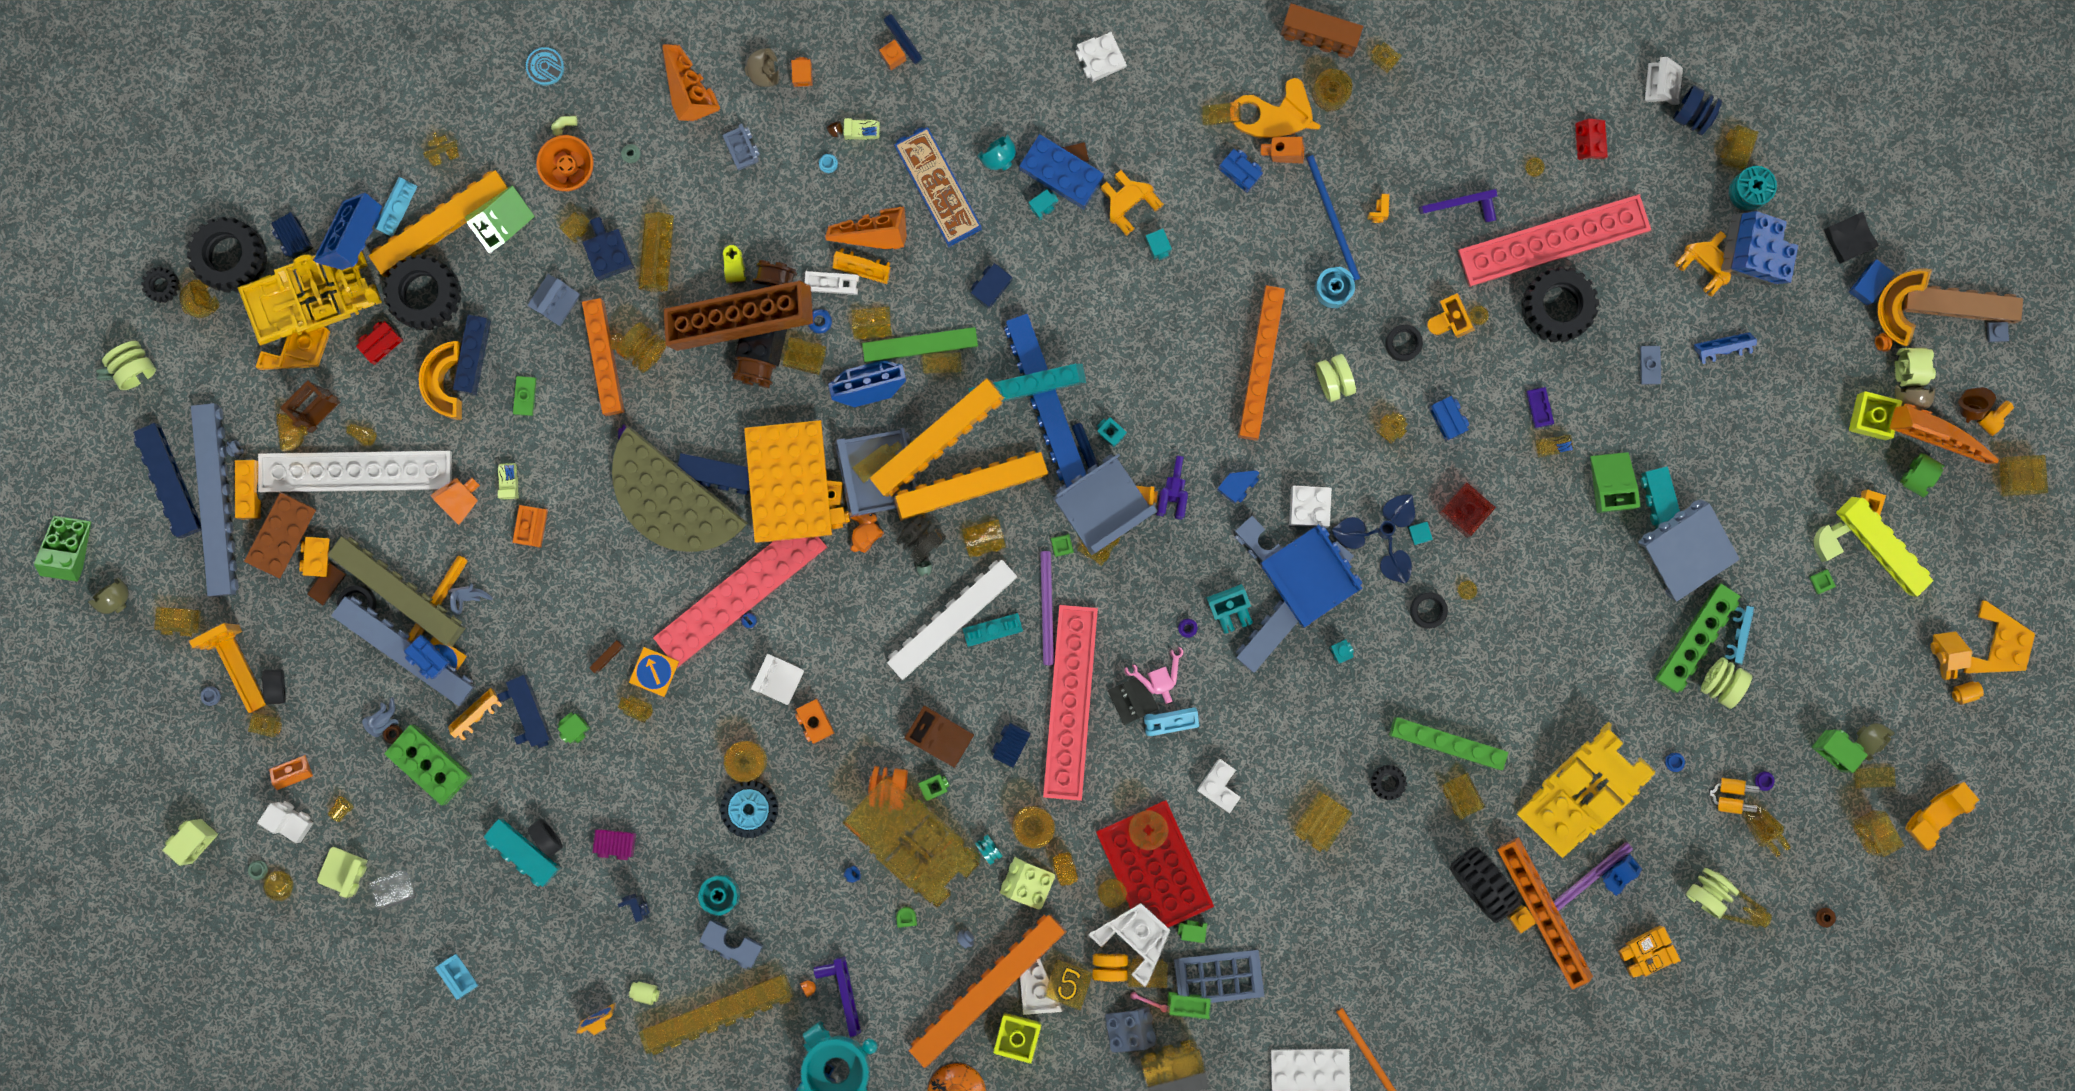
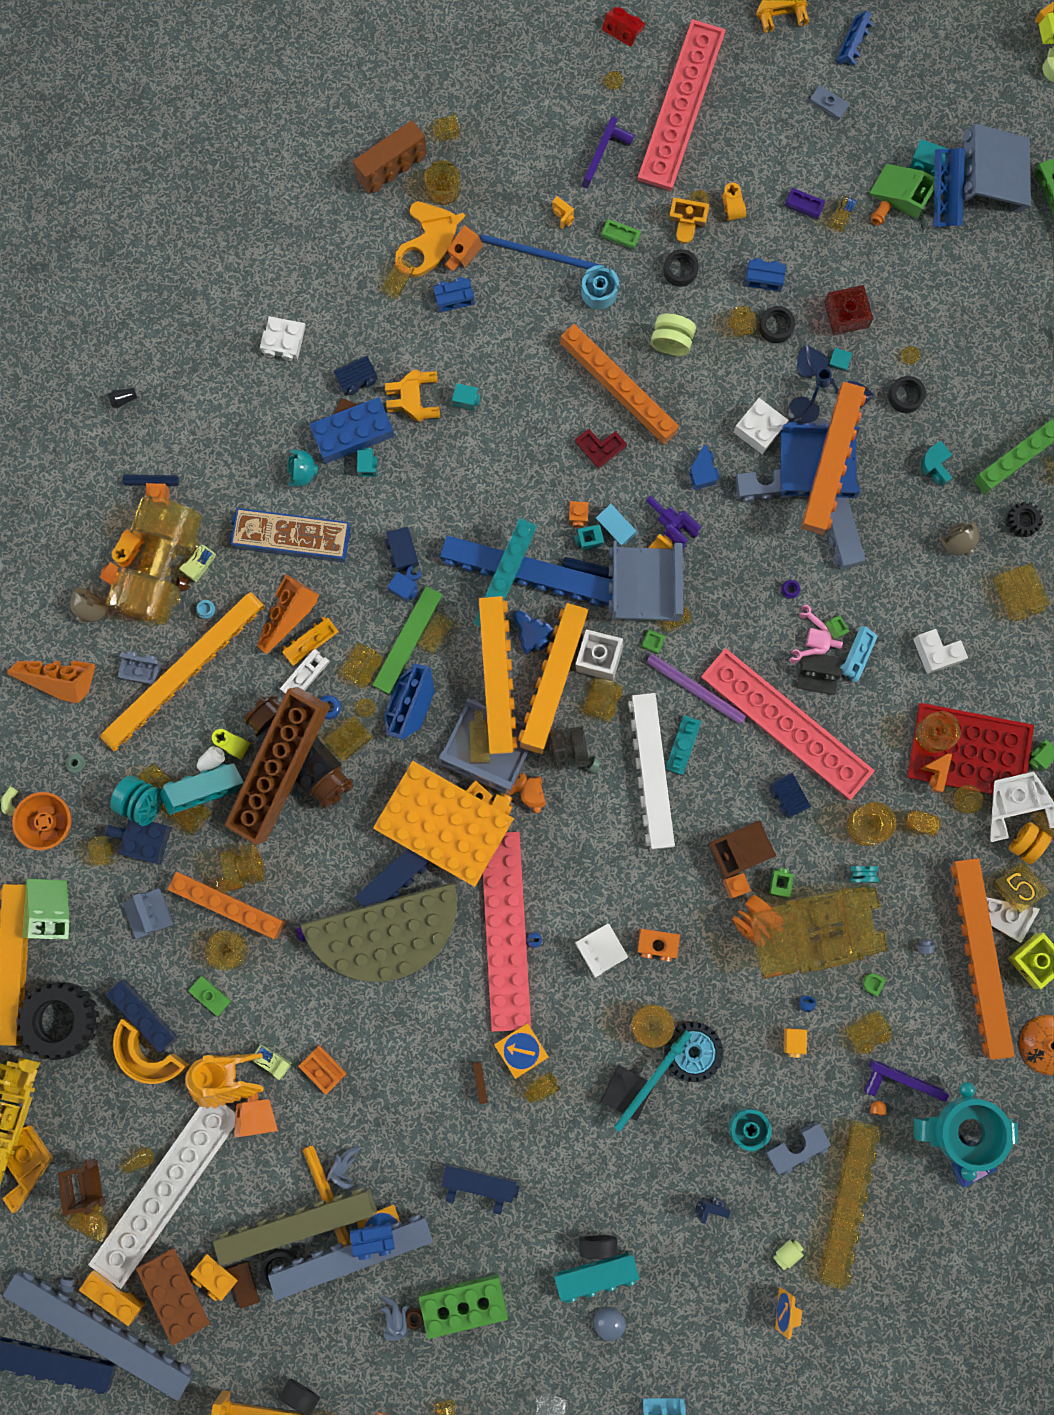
camera: 55 degrees left, 5 degrees down
(378, 342) = (72, 1089): red brick -> none
(461, 447) = (213, 1080): none -> light orange piece
(474, 714) = (447, 1233): light orange plate -> none
(494, 888) = (609, 1323): none -> sand blue hair
(558, 380) = (219, 941): none -> clear yellow brick
(573, 728) = (520, 1155): bright green brick -> none
(614, 843) = (643, 1189): magenta brick -> none
(633, 226) = (136, 800): none -> teal wheel
(679, 269) = (201, 788): none -> teal brick
(680, 778) = (623, 1089): none -> black brick
(708, 259) = (210, 759): none -> white brick
(740, 792) = (676, 1049): none -> teal bar
(764, 182) = (181, 671): none -> light orange beam
(813, 885) = (795, 1042): none -> light orange brick
(834, 63) = (127, 545): none -> light orange piece
(840, 351) = (365, 707): none -> clear yellow plate
(863, 940) = (869, 1032): none -> clear yellow bracket
(866, 84) = (167, 530): none -> clear yellow cylinder
(906, 752) = (736, 885): none -> orange brick
(961, 309) = (404, 586): none -> blue brick
(997, 441) = (532, 632): none -> blue rock
(1016, 509) = (599, 655): none -> white brick
(1027, 883) = (912, 864): yellowish green bracket -> none
(1111, 141) = (356, 375): none -> dark blue brick
(1121, 851) = (940, 768): none -> orange slope
(1126, 408) = (578, 514): none -> orange bracket
(1138, 446) = (616, 525): none -> medium azure hinge
(1181, 688) = (837, 627): none -> bright green tile
(1191, 386) = (598, 451): none -> dark red plate
(1229, 602) = (794, 542): teal brick -> none
(1316, 584) = (833, 458): none -> orange brick
(1331, 740) = (963, 538): none -> dark tan cylinder
(1342, 651) = (896, 480): teal brick -> none
(1383, 671) = (933, 461): none -> teal brick
(1397, 271) = (620, 234): none -> bright green plate
(1412, 444) = (772, 337): none -> black tyre
(1493, 348) = (733, 202): none -> light orange piece
(1542, 322) = (736, 153): black tyre -> none
(1578, 478) = (879, 216): none -> orange pin
(1641, 522) = (951, 188): none -> blue fence

